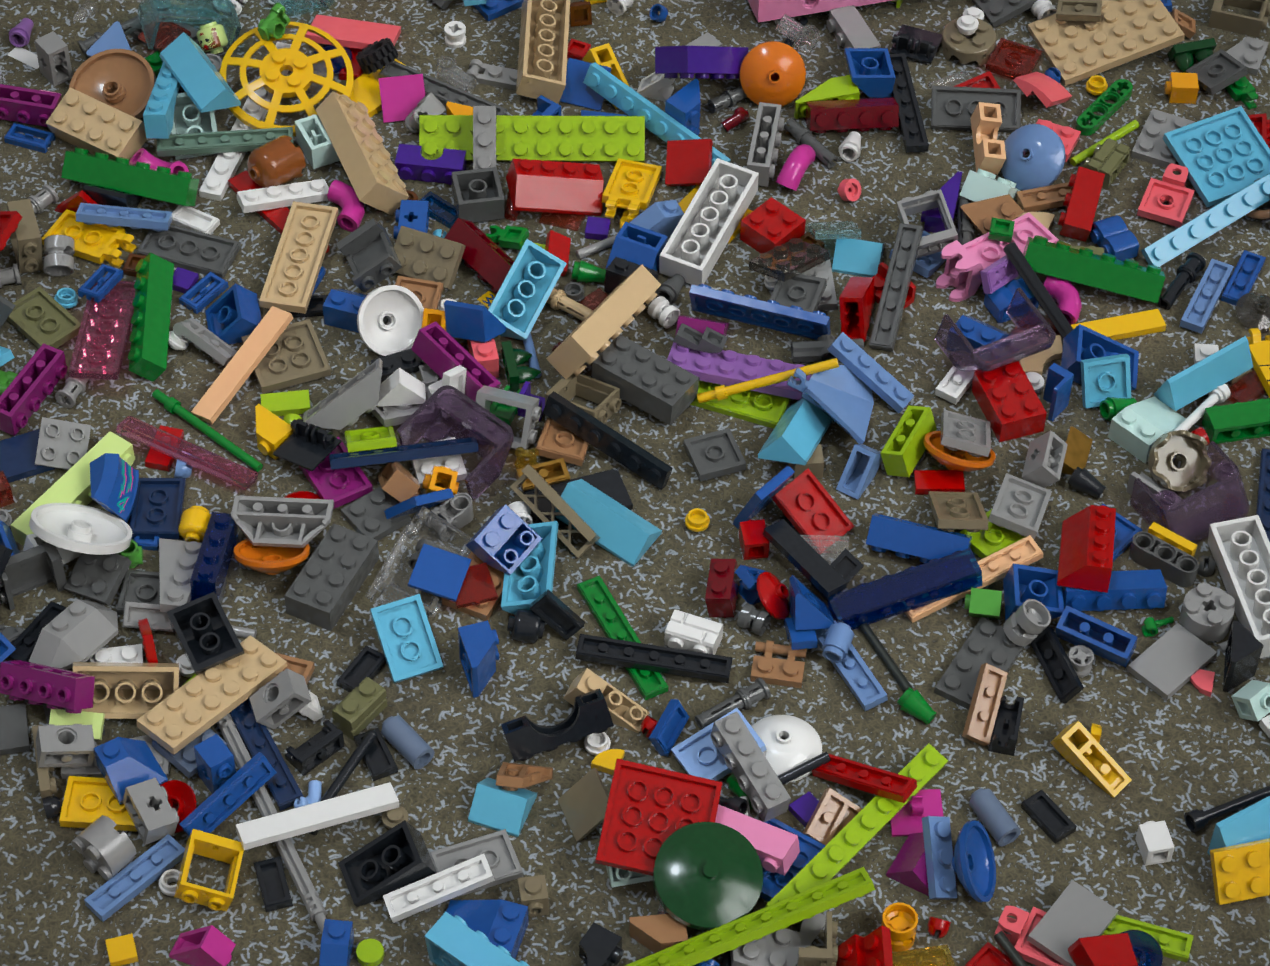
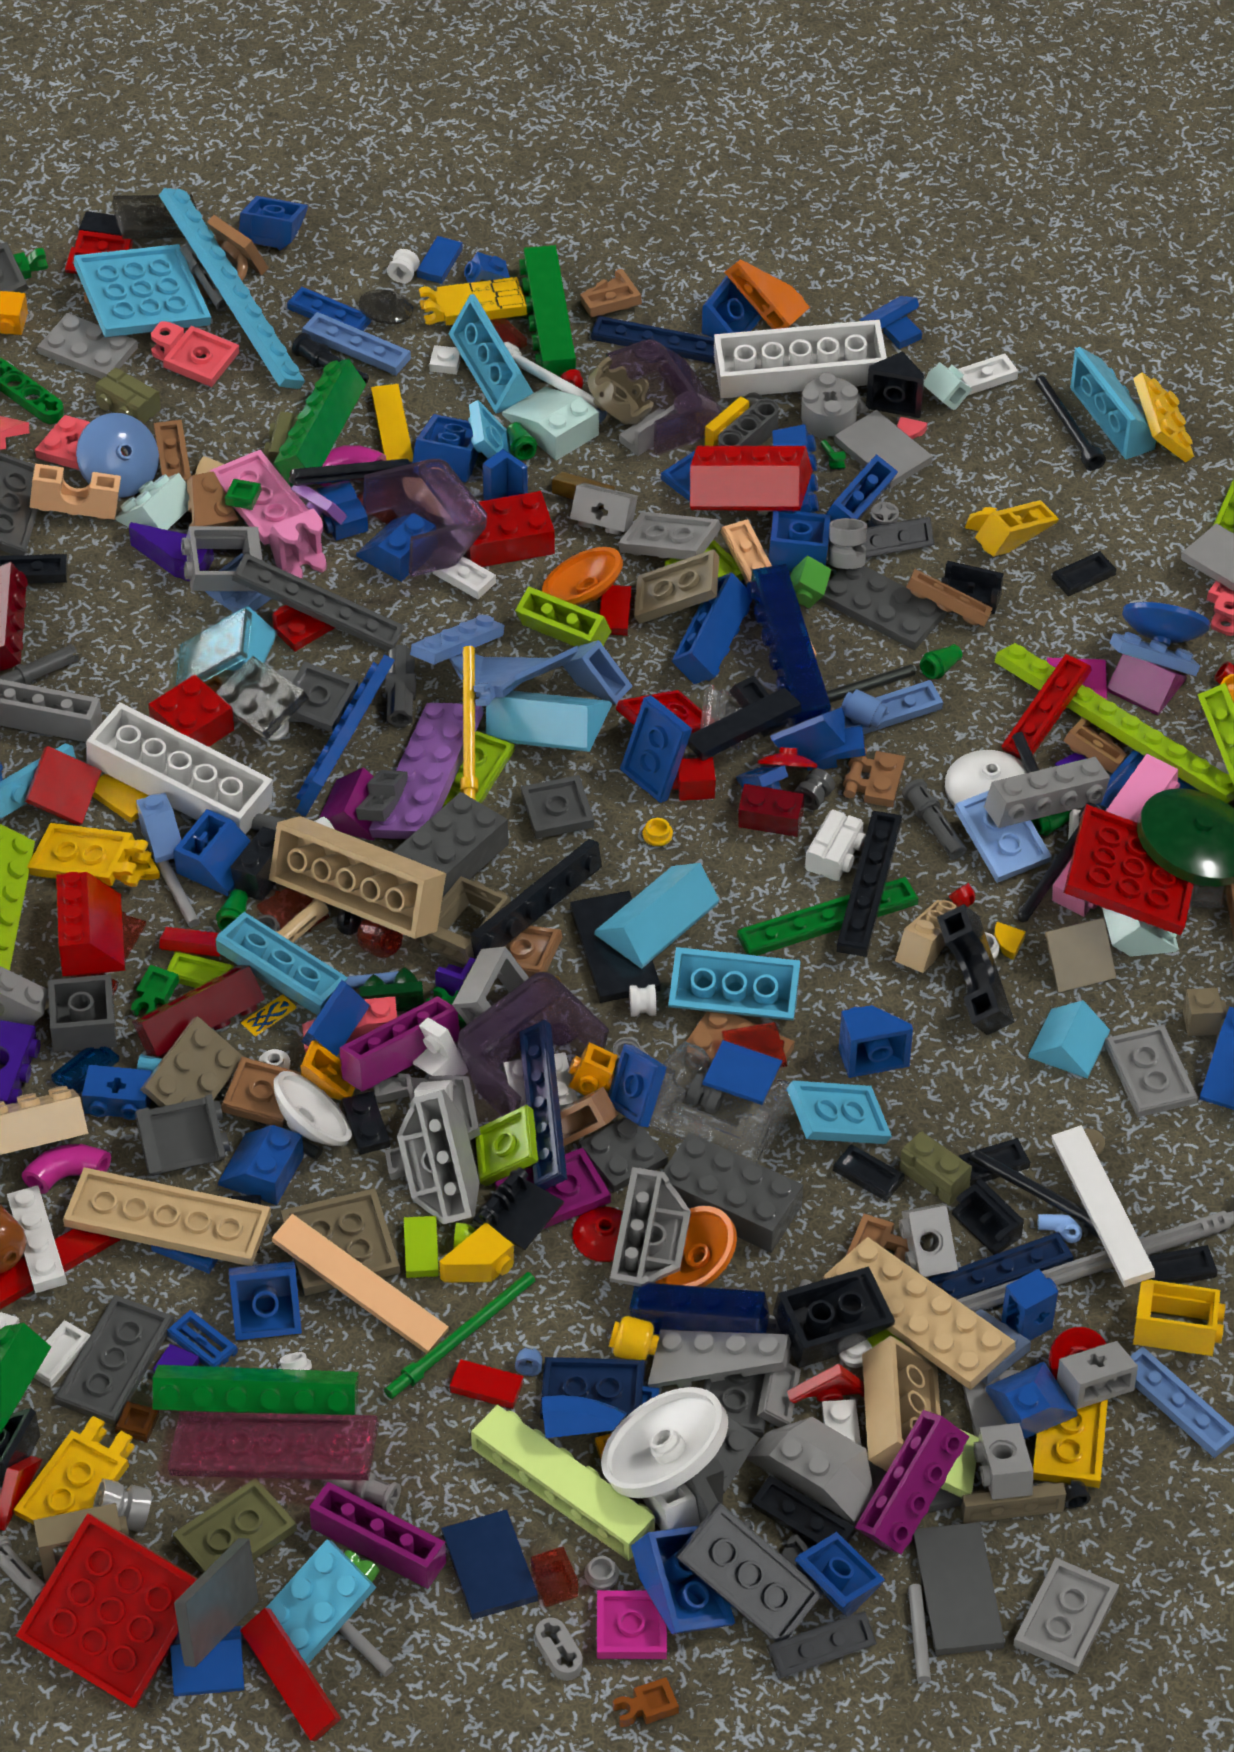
camera: 85 degrees left, 0 degrees up
(61, 443) = (480, 1494): light grey hinge -> none
(66, 298) = (191, 1498): medium azure plate -> none
(104, 285) = (212, 1452): blue tile -> none
(104, 848) = (1150, 1422): light grey brick -> none
(124, 216) = (57, 1424): medium blue plate -> none
(167, 877) = (1185, 1359): white plate -> none
(187, 452) = (509, 1349): clear pink tile -> none
(205, 340) = (307, 1328): light grey plate -> none
(229, 795) = (1073, 1294): blue tile -> none
(387, 864) = (1162, 1148): black slope -> none
(407, 741) = (983, 1124): sand blue brick -> none
(438, 888) = (1196, 1096): white plate -> none
(504, 541) = (701, 1002): slope -> none
(515, 776) = (1039, 1014): medium nougat wing -> none
(525, 626) = (815, 999): black head -> none
(552, 471) = (577, 972): pearl gold slope -> none
(557, 615) = (812, 961): black tile -> none
(558, 502) = (640, 948): dark tan fence -> none
(597, 228) = (149, 899): dark purple tile -> none
(669, 727) = (967, 875): blue tile -> none
(796, 166) = (81, 678): dark pink cylinder -> none
(849, 190) = (129, 639): coral tile -> none
(850, 146) = (52, 630): white cone -> none
(857, 306) = (338, 644): red slope -> none
(965, 433) = (561, 566): light grey plate -> none
(994, 816) = (1090, 612): sand blue brick -> none
(1081, 203) = (202, 422): red brick -> none
(1085, 482) = (632, 480): black cone -> none
(1114, 136) = (76, 390): lime bar -> none
(1115, 238) = (254, 407): blue brick -> none
(1154, 842) = (1123, 490): white brick -> none

